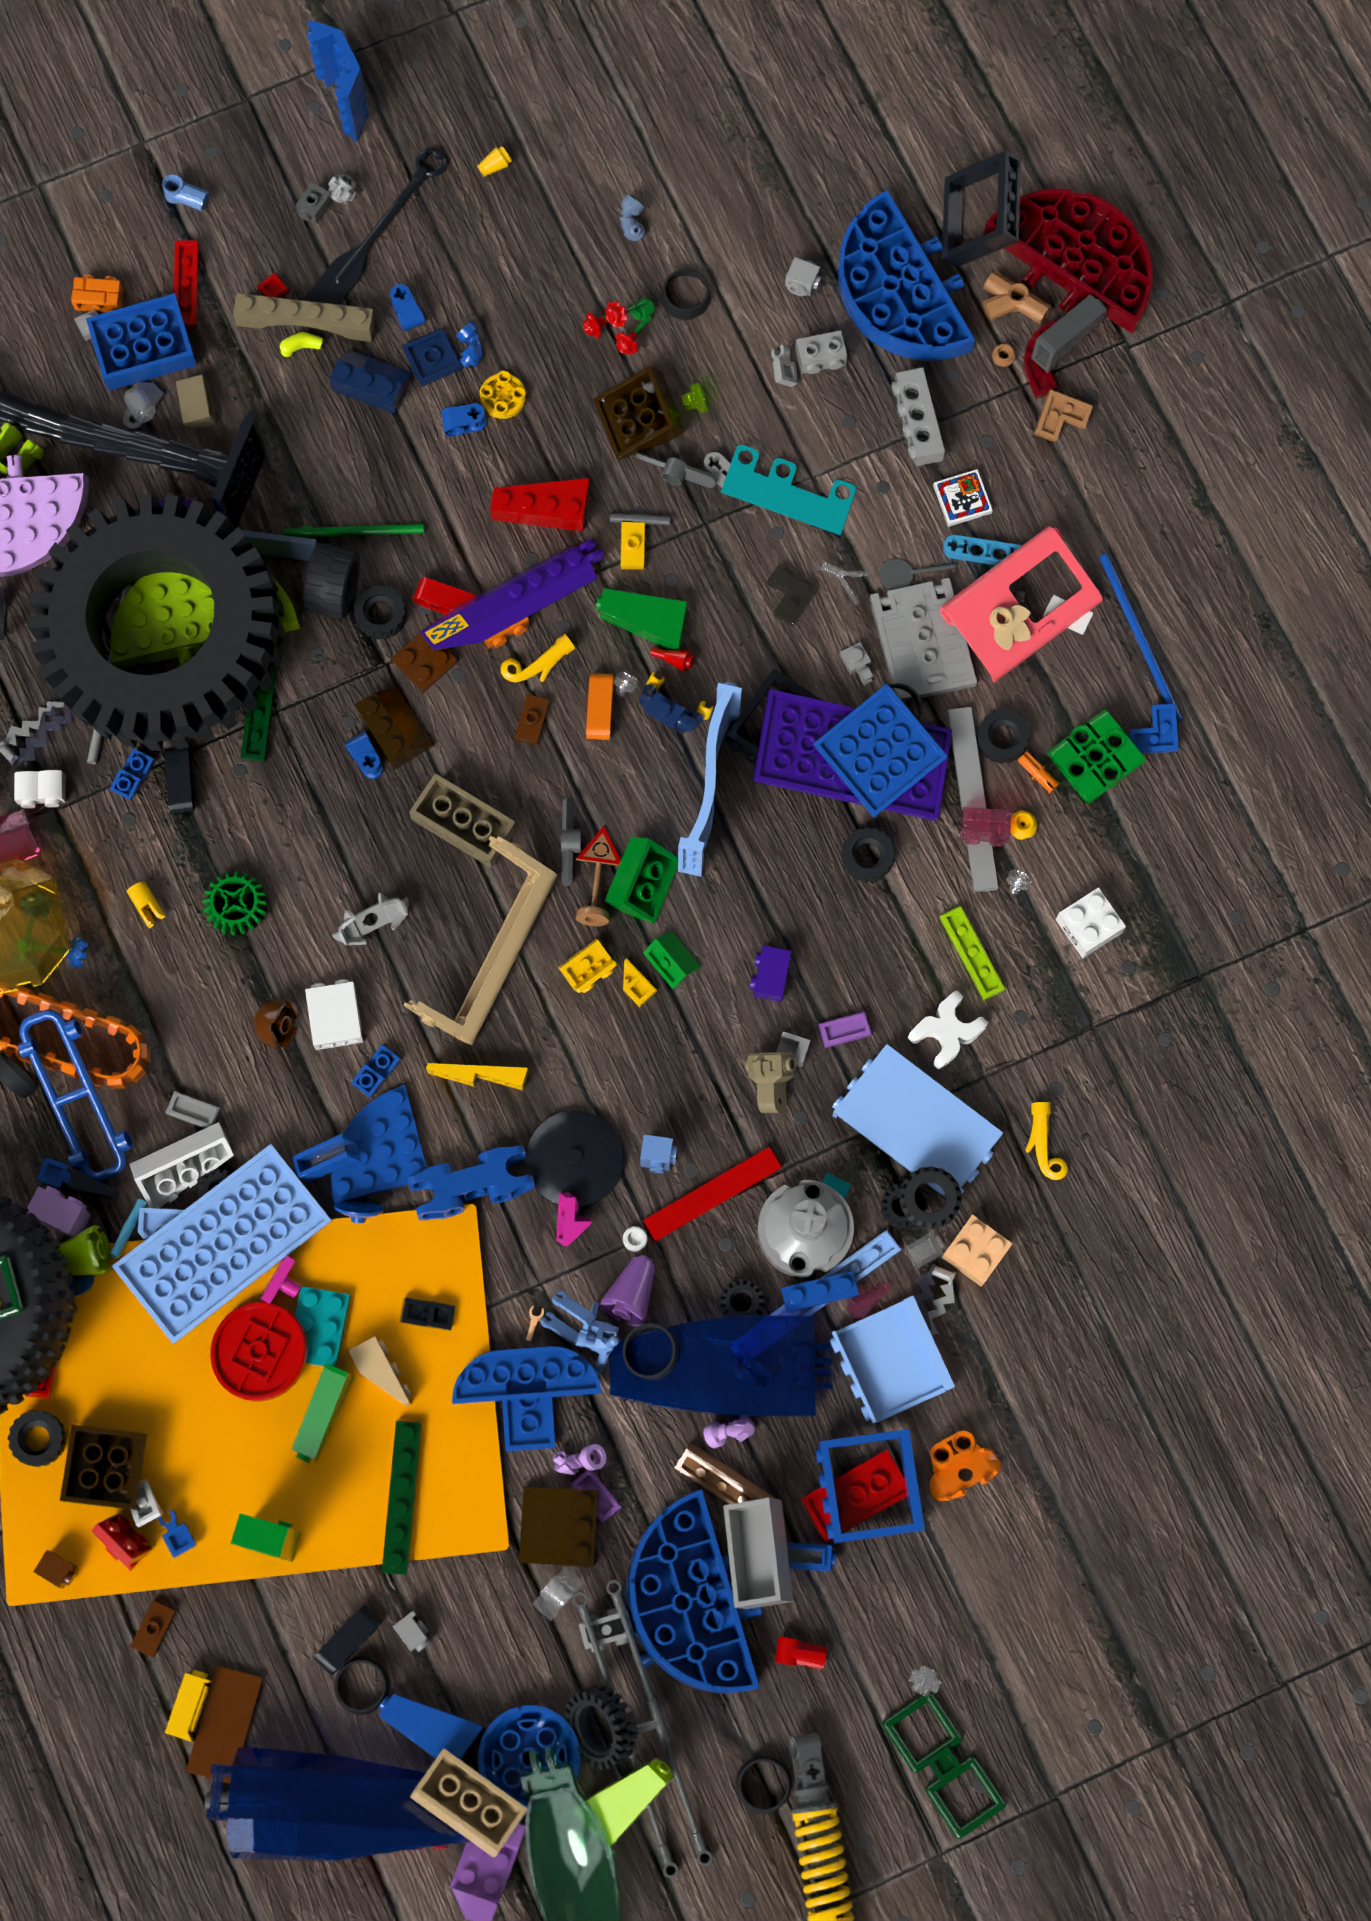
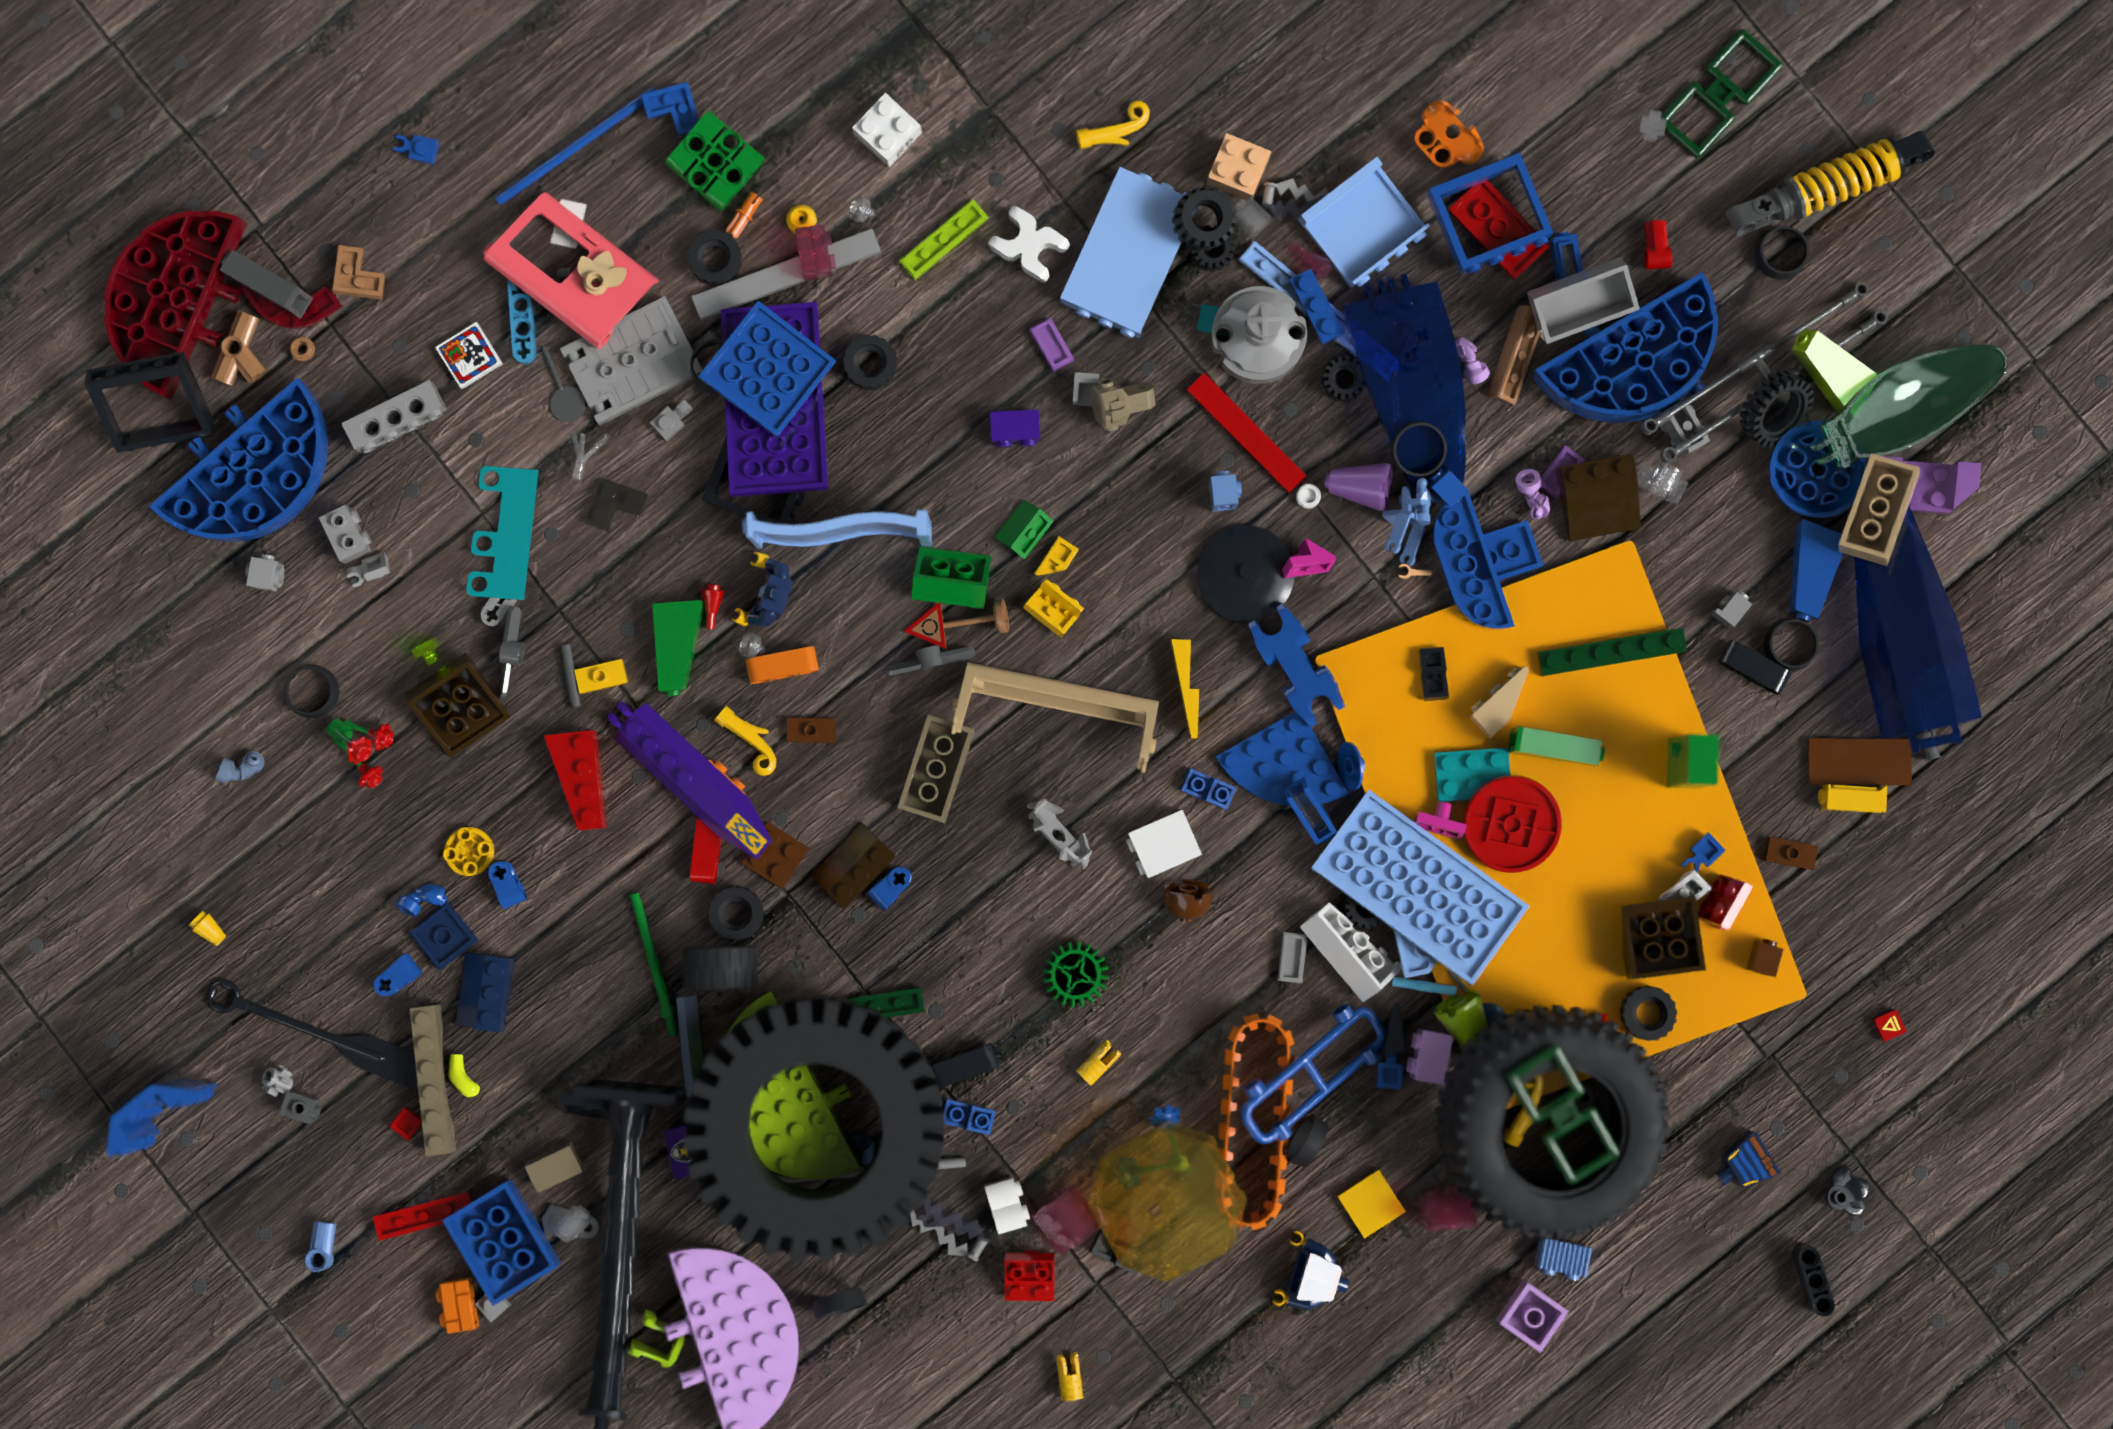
camera: 100 degrees left, 10 degrees up
(608, 1372) = (1447, 485): none -> blue brick
(1169, 498) = (421, 148): none -> blue plate

